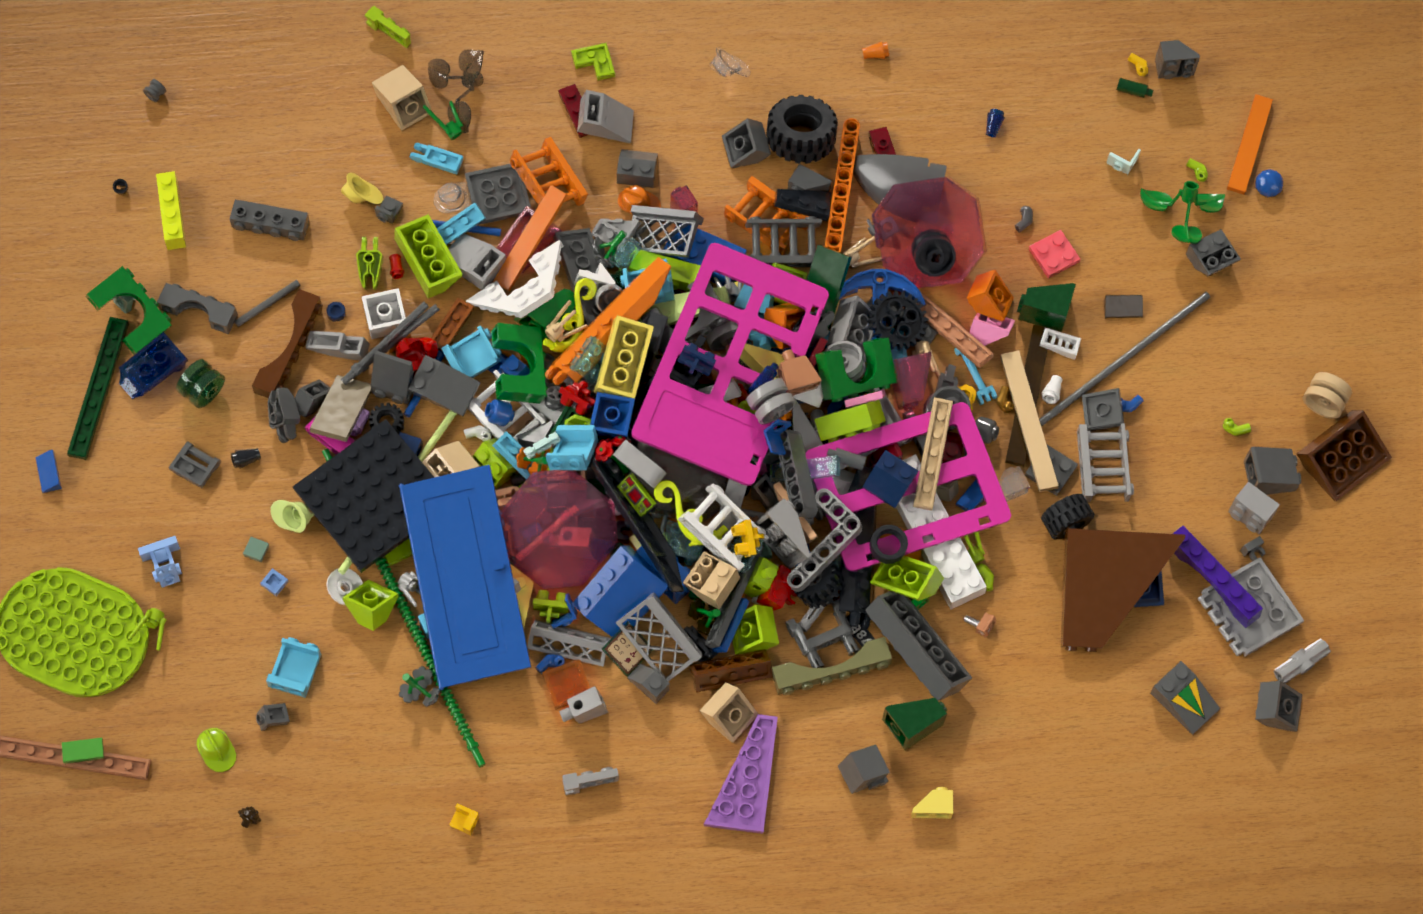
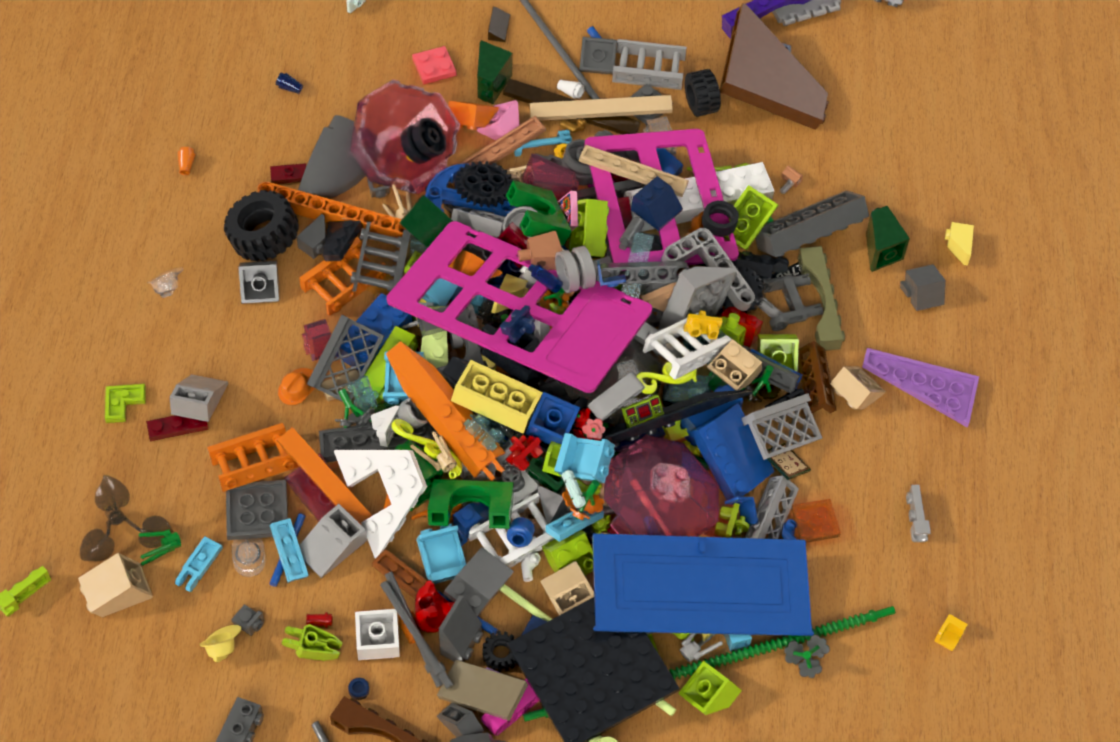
camera: 80 degrees left, 10 degrees down
(337, 345) = (401, 690): light grey slope -> none
(348, 581) = (686, 715): white dish -> none
(427, 255) = (318, 583): lime slope -> none
(591, 706) = (844, 504): light grey torso -> none
(609, 229) = (329, 407): light grey wing -> none
(636, 168) = (259, 378): dark grey slope -> none
(649, 682) = (822, 448): dark grey slope -> none
(1027, 218) = (388, 75): dark grey arm -> none
(1075, 341) = (528, 63): white slope -> none
(1185, 697) = (873, 50): dark grey slope -> none

